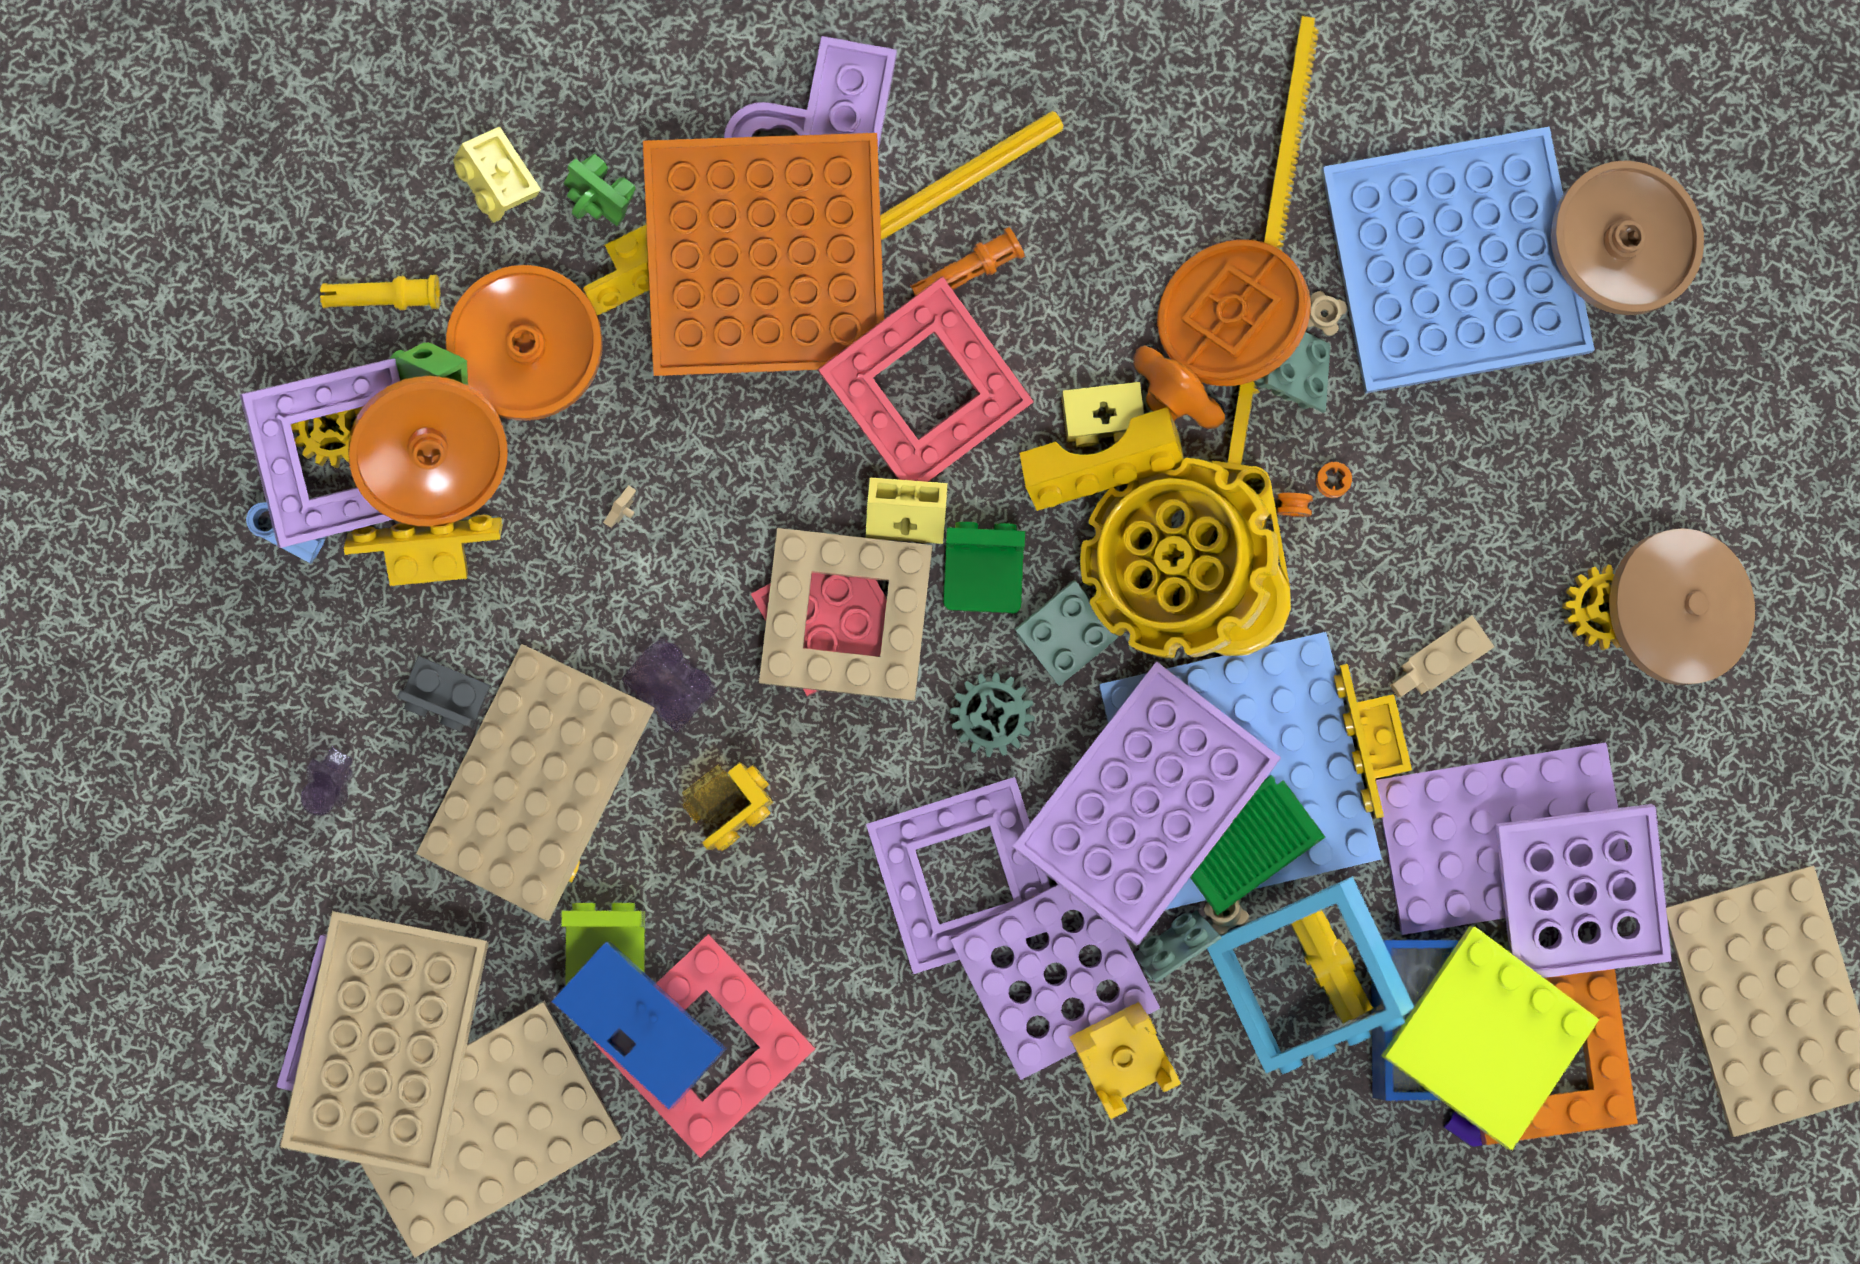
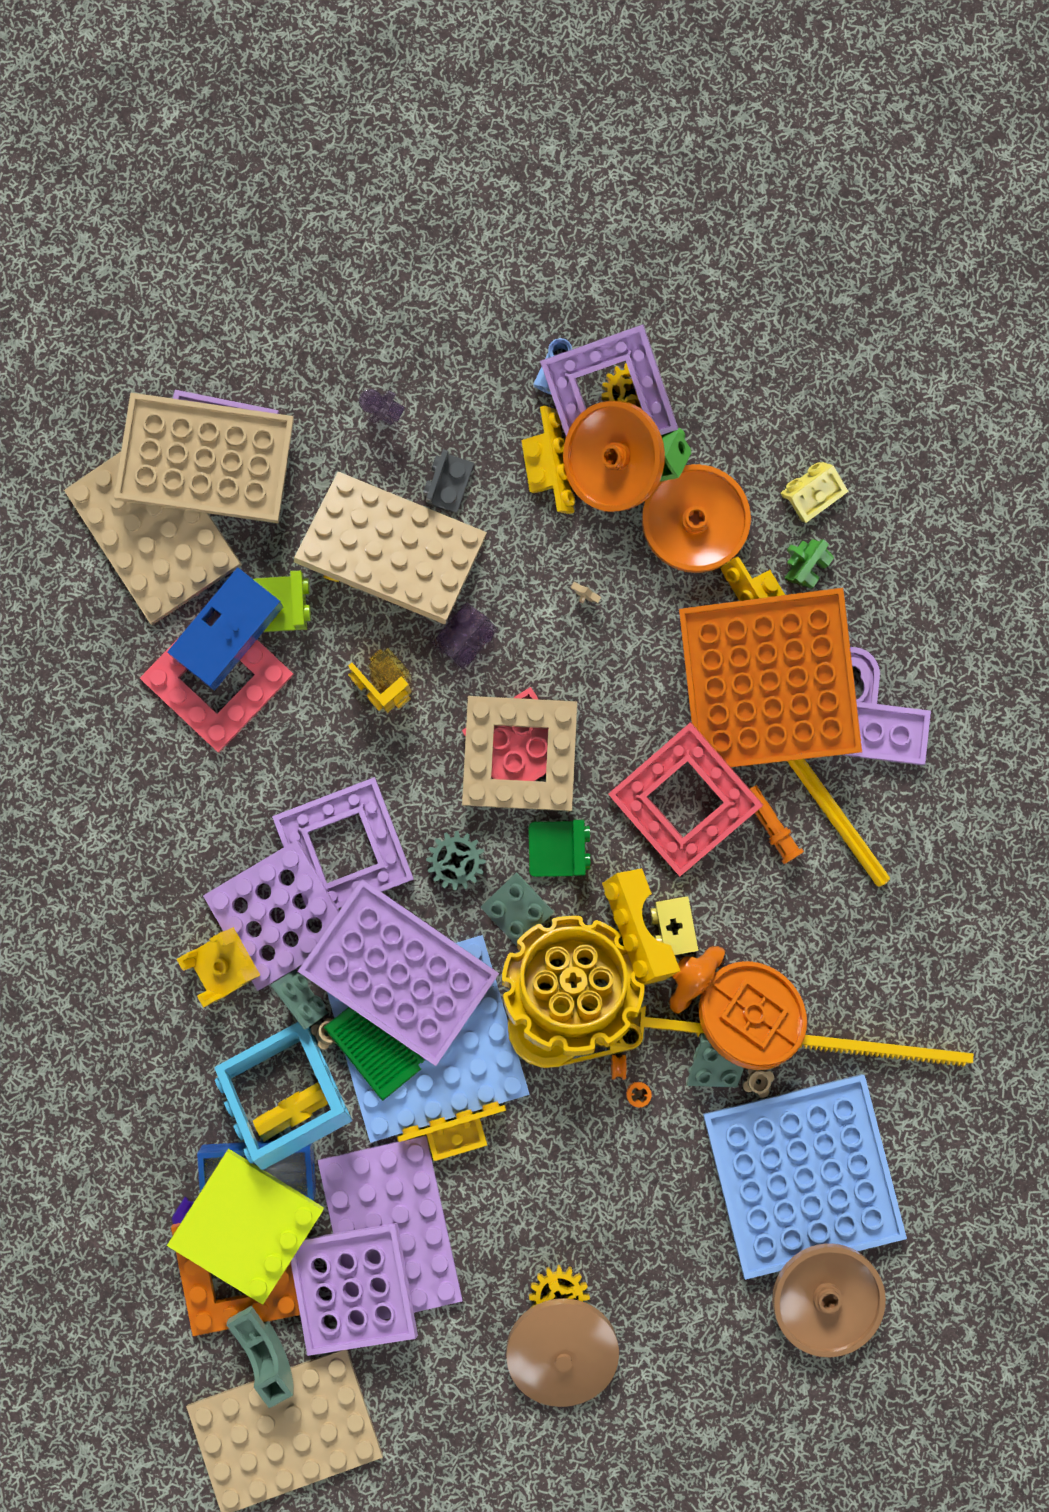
camera: 80 degrees right, 0 degrees up
(398, 293) = (725, 431): yellow pin -> none
(906, 510) = (595, 791): light yellow brick -> none
(1443, 658) = (516, 1180): tan hinge -> none
(1670, 1018) = (267, 1356): none -> sand green arch

